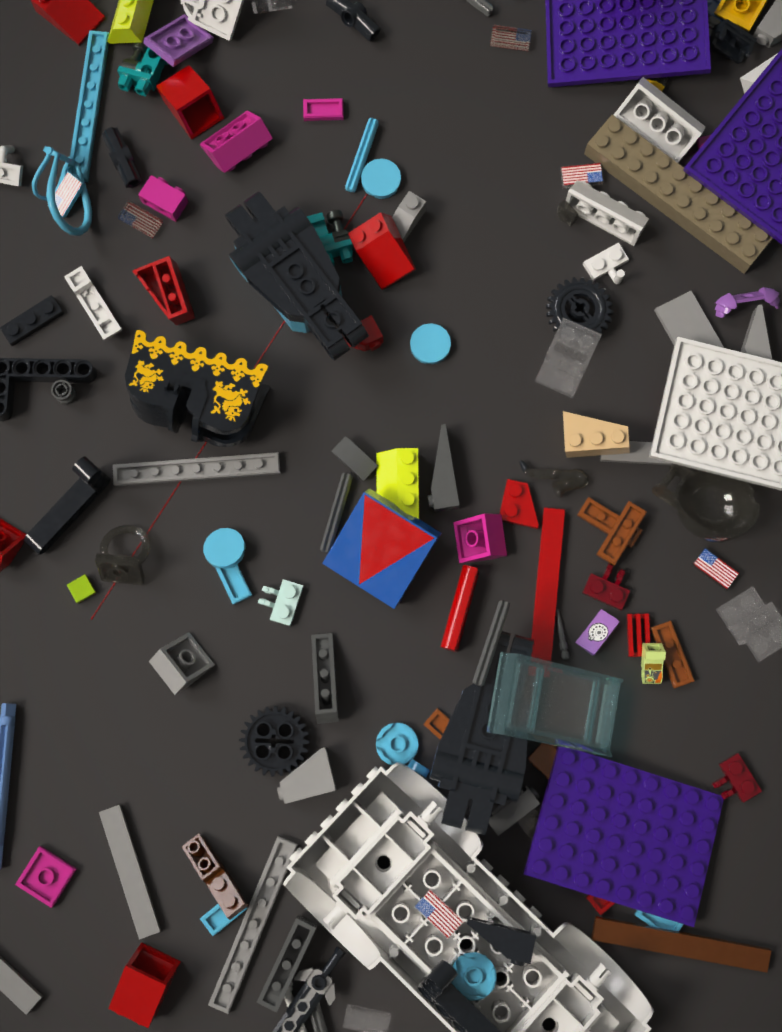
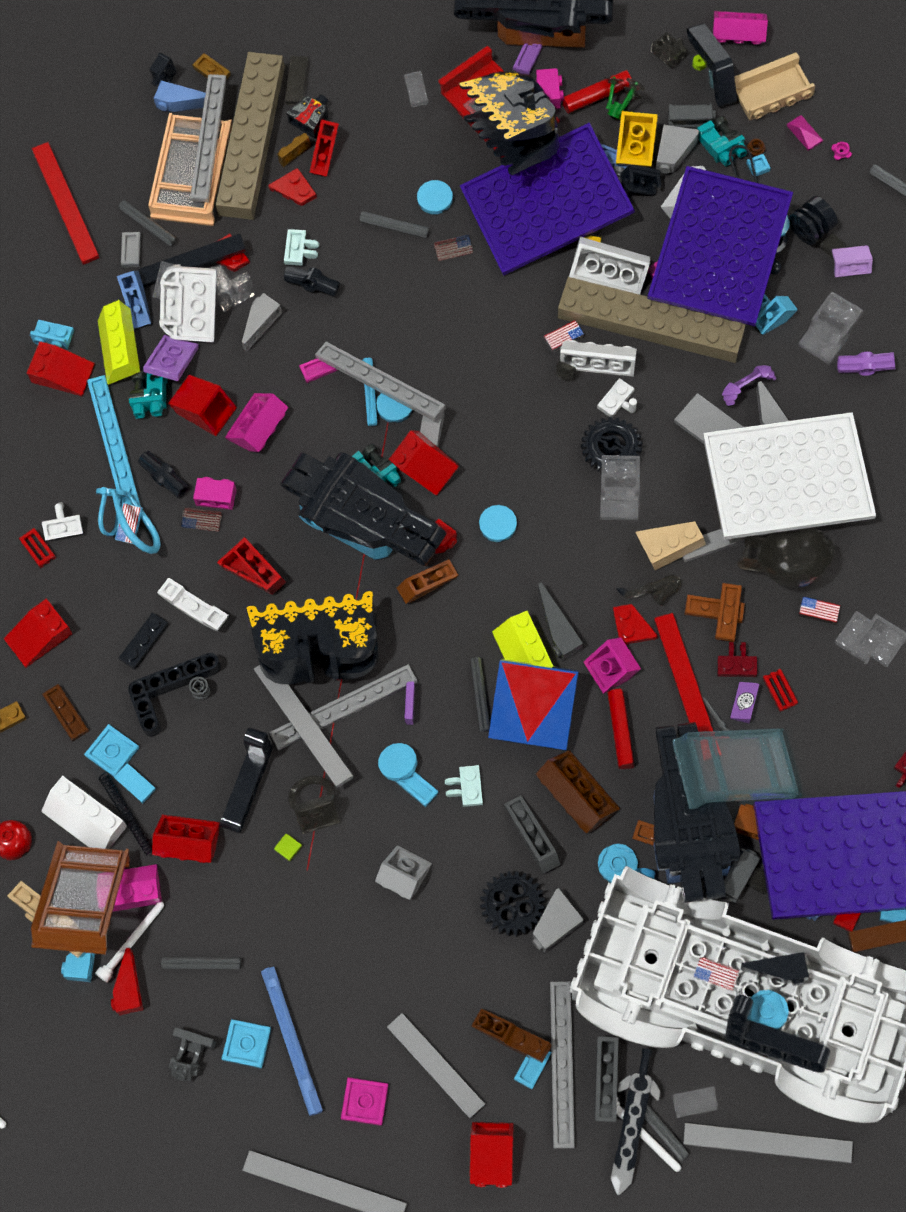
camera: 20 degrees left, 10 degrees down
(149, 481) = (307, 730): none -> light grey tile
(262, 492) = (409, 703): none -> medium lavender tile
(286, 34) = (262, 315): none -> light grey slope
(333, 374) = (426, 581): none -> dark orange slope
(354, 458) = (476, 642): dark grey slope -> none
(375, 149) = (380, 381): none -> light grey tile
(388, 654) = (577, 791): none -> reddish brown slope
(491, 643) = (661, 736): dark grey axle -> none
(652, 663) = (801, 707): yellowish green leg -> none
(675, 660) = (815, 694): dark orange tile -> none

